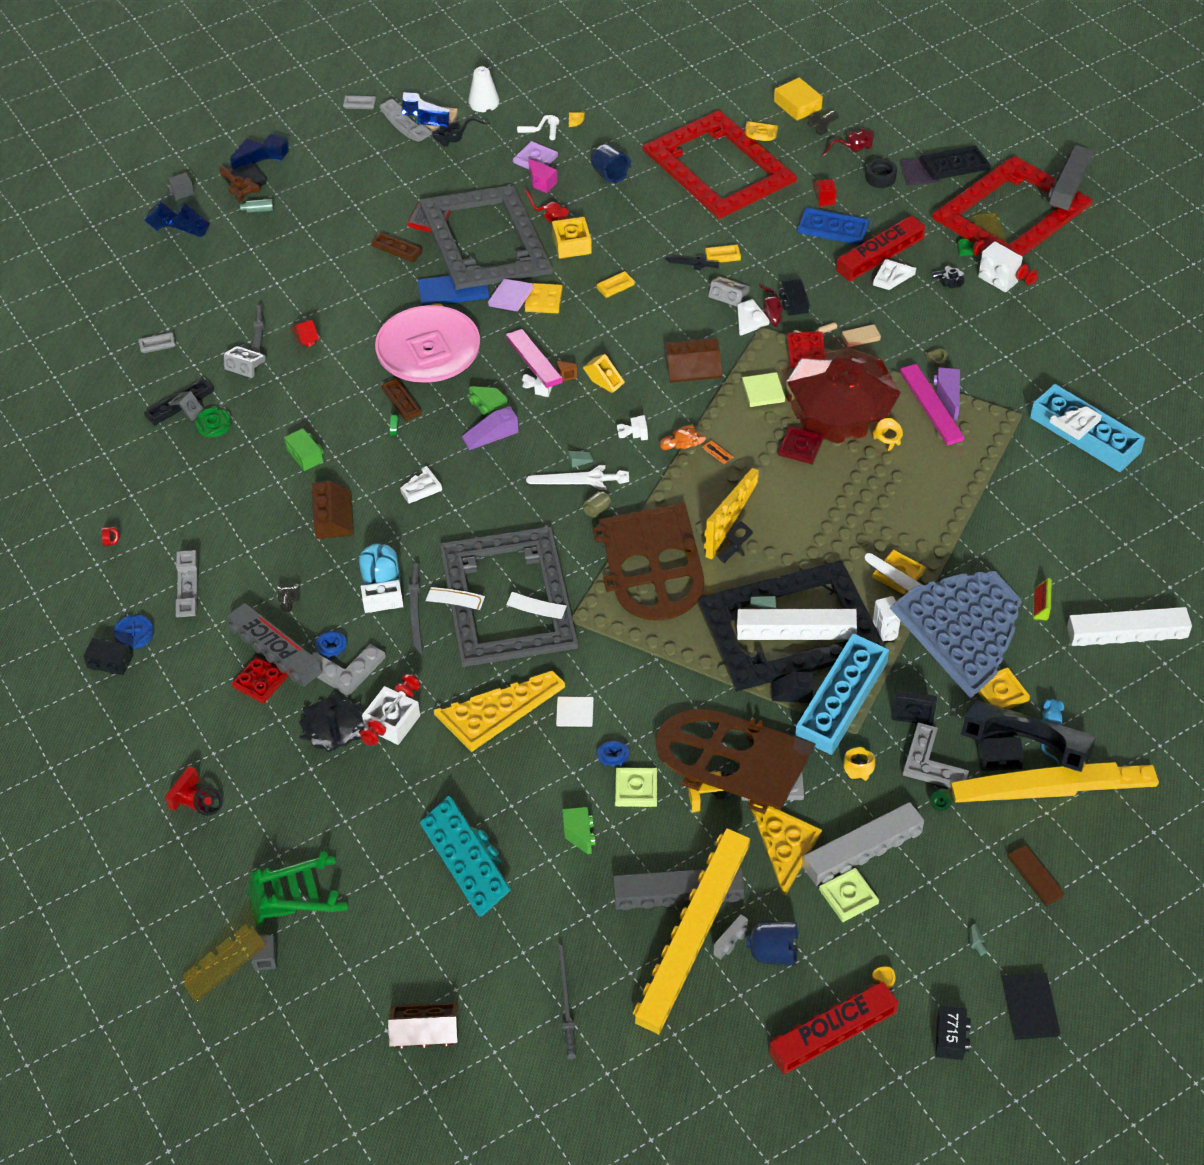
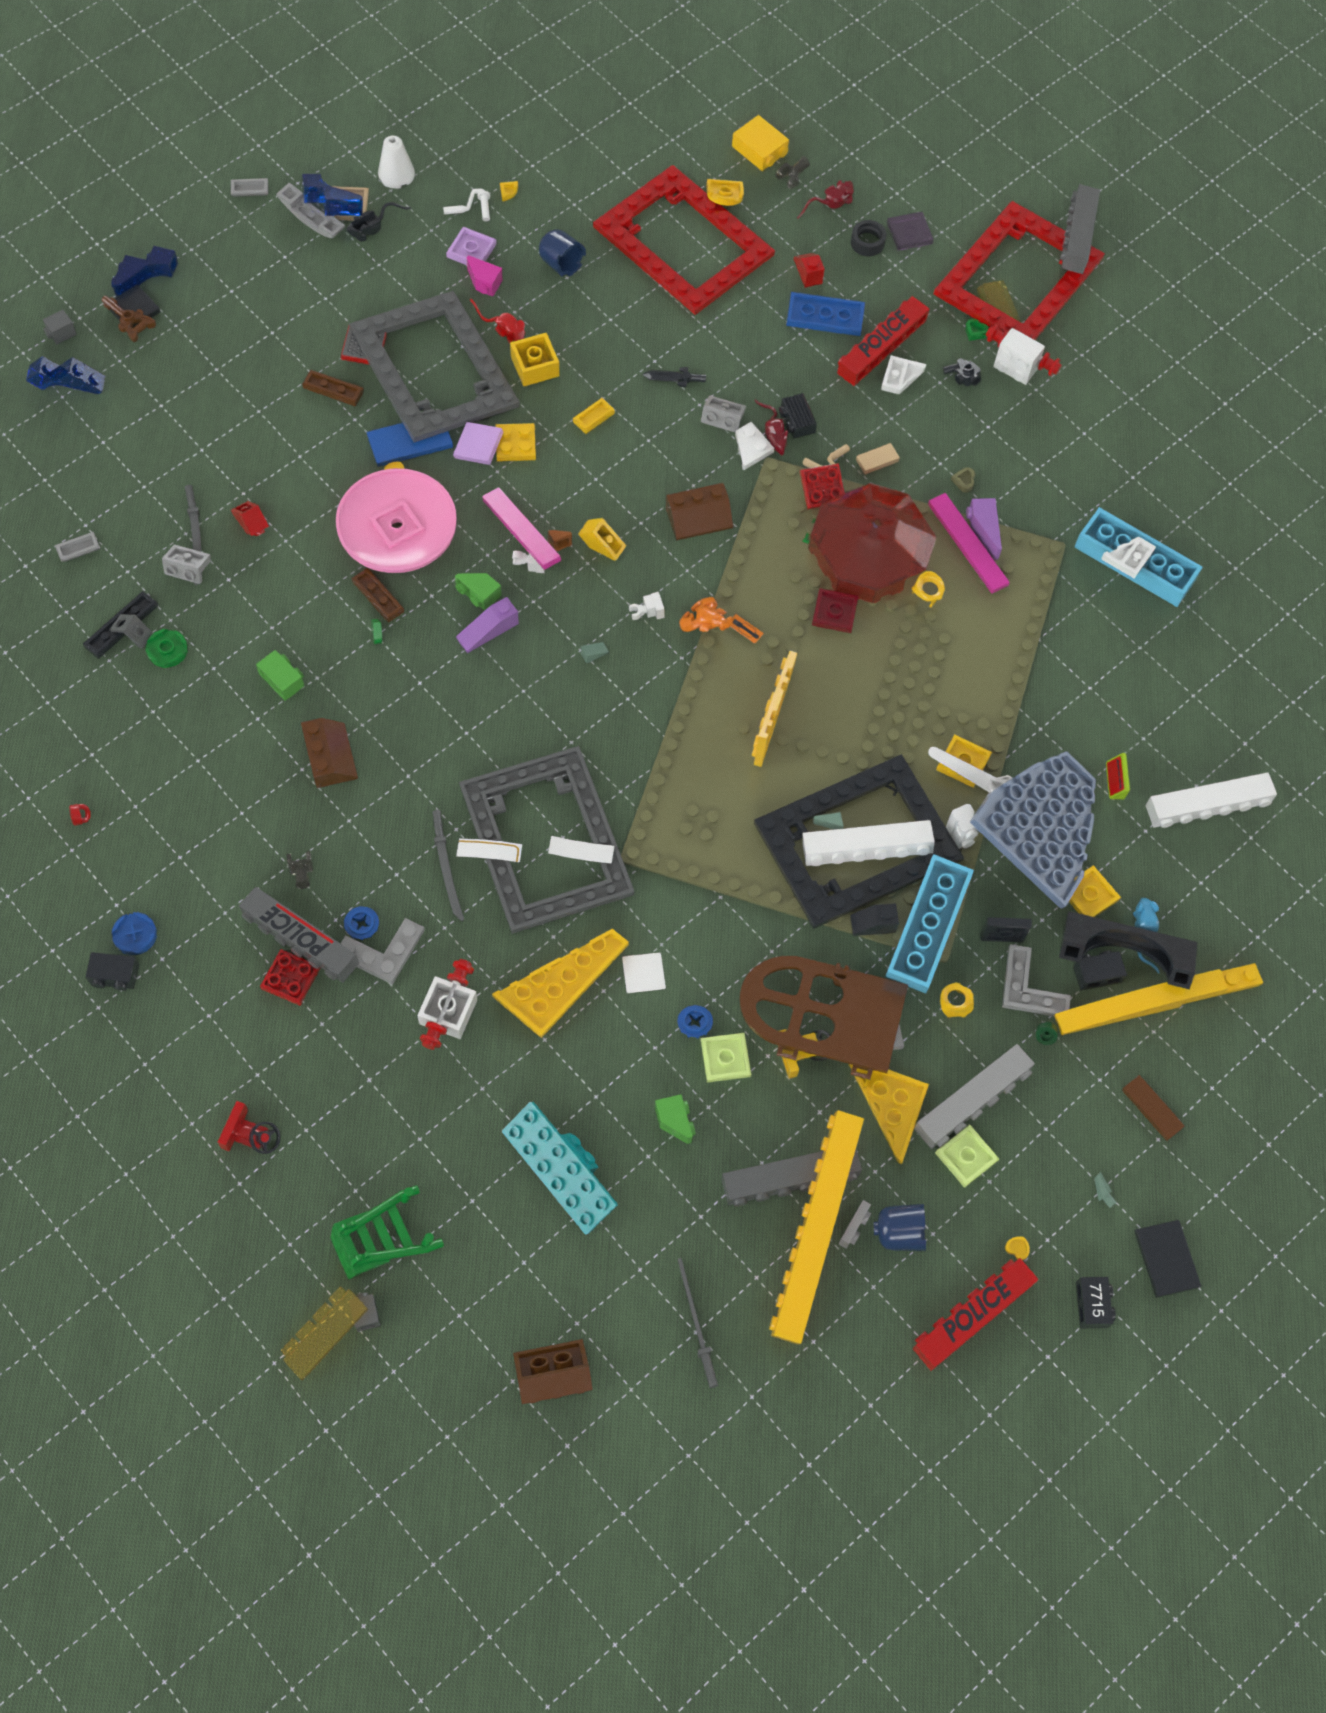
camera: 15 degrees left, 15 degrees up
(187, 584) = (183, 867): light grey slope -> none
(258, 206) = (157, 346): sand green cylinder -> none
(332, 723) = (383, 1023): black piece -> none
(378, 564) = (408, 825): medium azure cylinder -> none
(382, 596) = (408, 858): white brick -> none
(421, 486) = (423, 708): white wing -> none
(594, 478) = (612, 675): white sword -> none
(596, 504) = (623, 710): olive brick -> none
(648, 535) = (687, 746): reddish brown door -> none
(723, 253) = (708, 363): yellow tile -> none
(734, 542) = (784, 749): black bracket -> none
(763, 389) = (783, 542): yellowish green tile -> none
(954, 162) = (947, 216): black tile -> none

